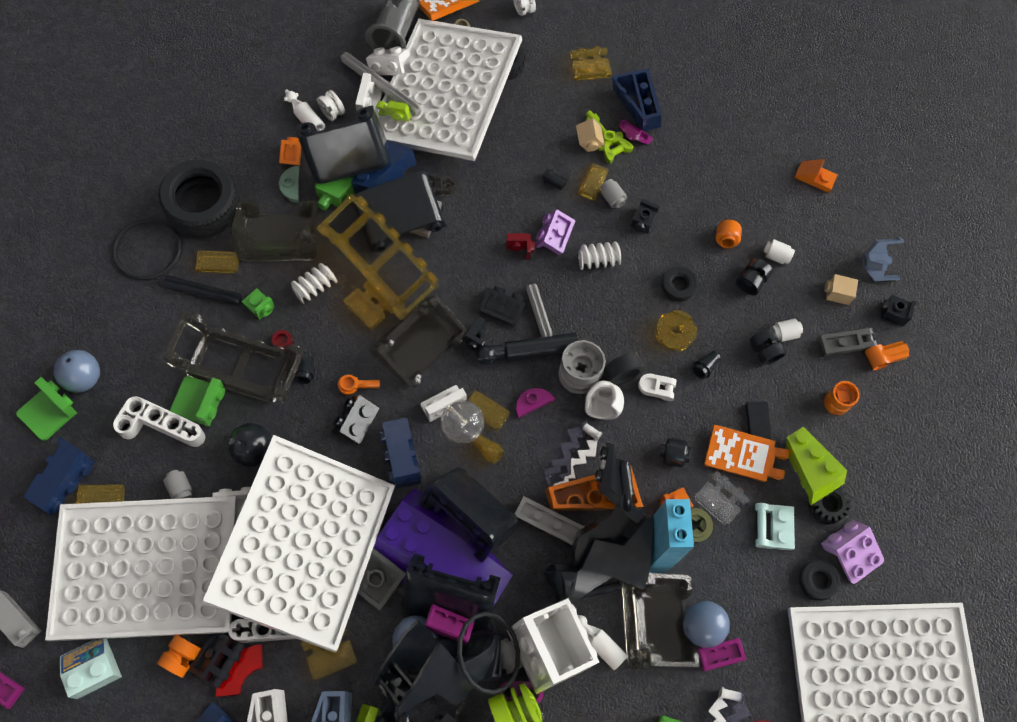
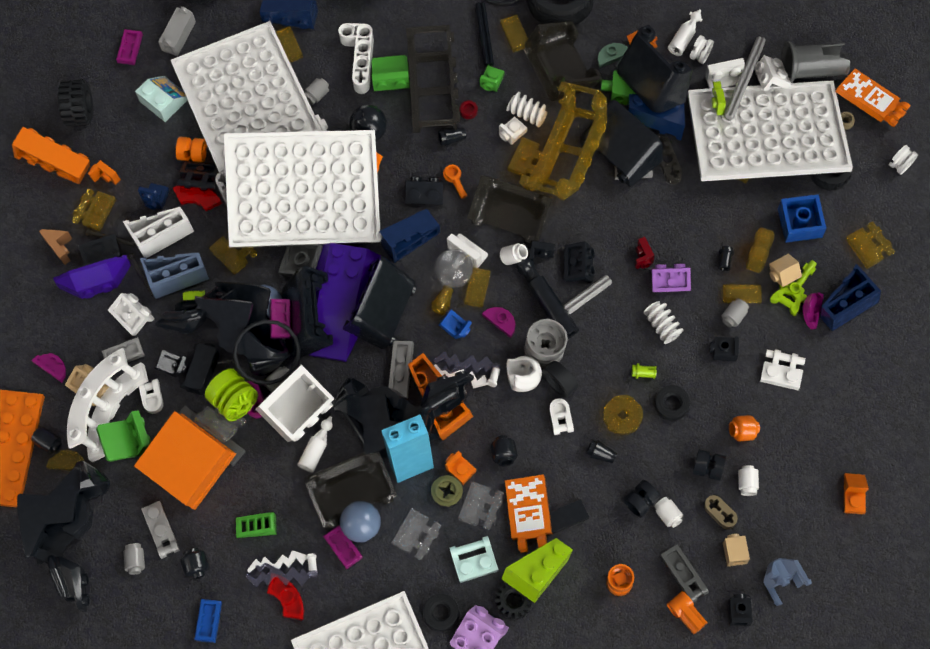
camera: 80 degrees right, 0 degrees up
(328, 308) = (512, 130): none -> white bracket
(470, 359) = (513, 254): none -> white brick
(522, 446) = (455, 325): none -> blue bracket
(545, 100) = (801, 218): none -> blue brick
(559, 146) = (760, 250): none -> clear yellow brick
(640, 292) = (643, 371): none -> lime pin
(685, 185) = (782, 375): none -> white plate
(727, 577) = (410, 532): none -> clear plate
(800, 291) = (717, 515): none -> dark tan beam

